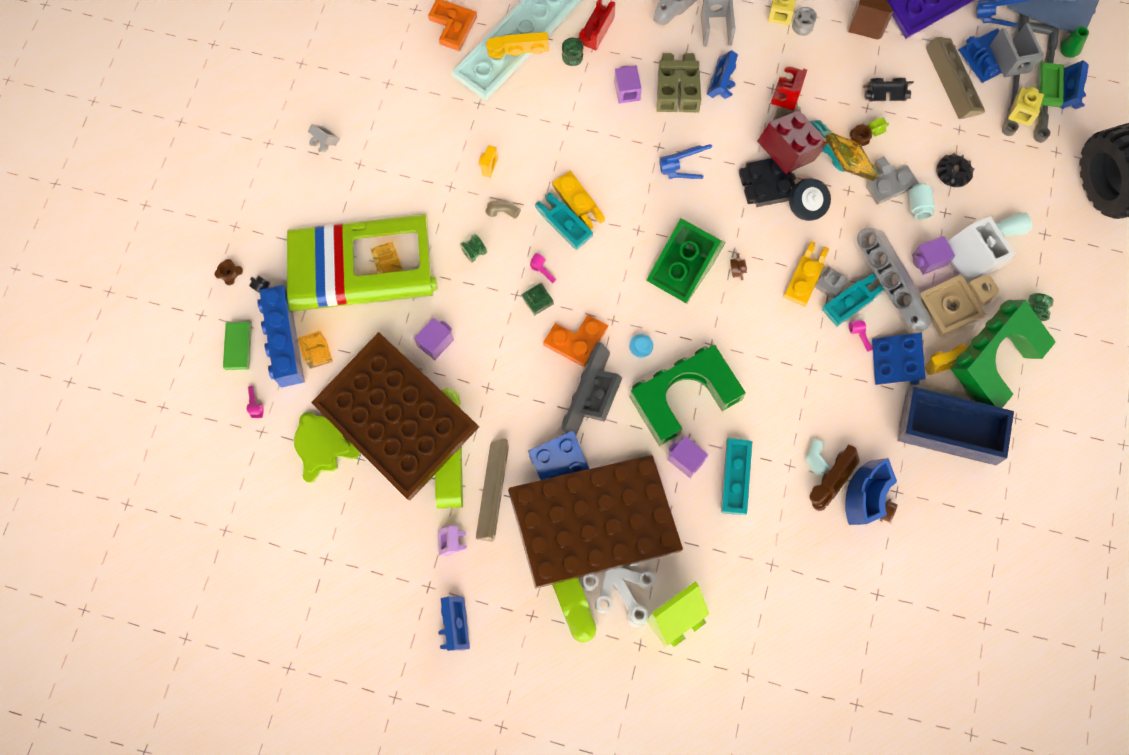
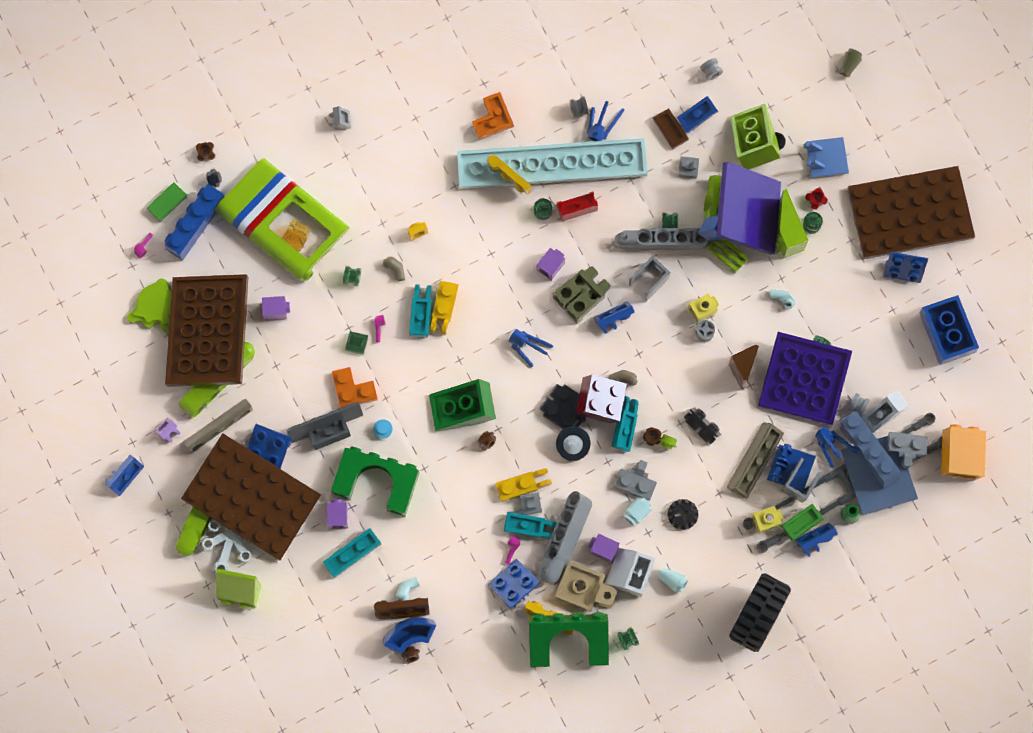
camera: 45 degrees right, 5 degrees up
(315, 349) = (204, 248): clear yellow panel -> none
(788, 90) = (640, 365): red hinge -> none
(851, 156) = (623, 443): clear yellow tile -> none
(956, 426) = (497, 649): dark blue piece -> none

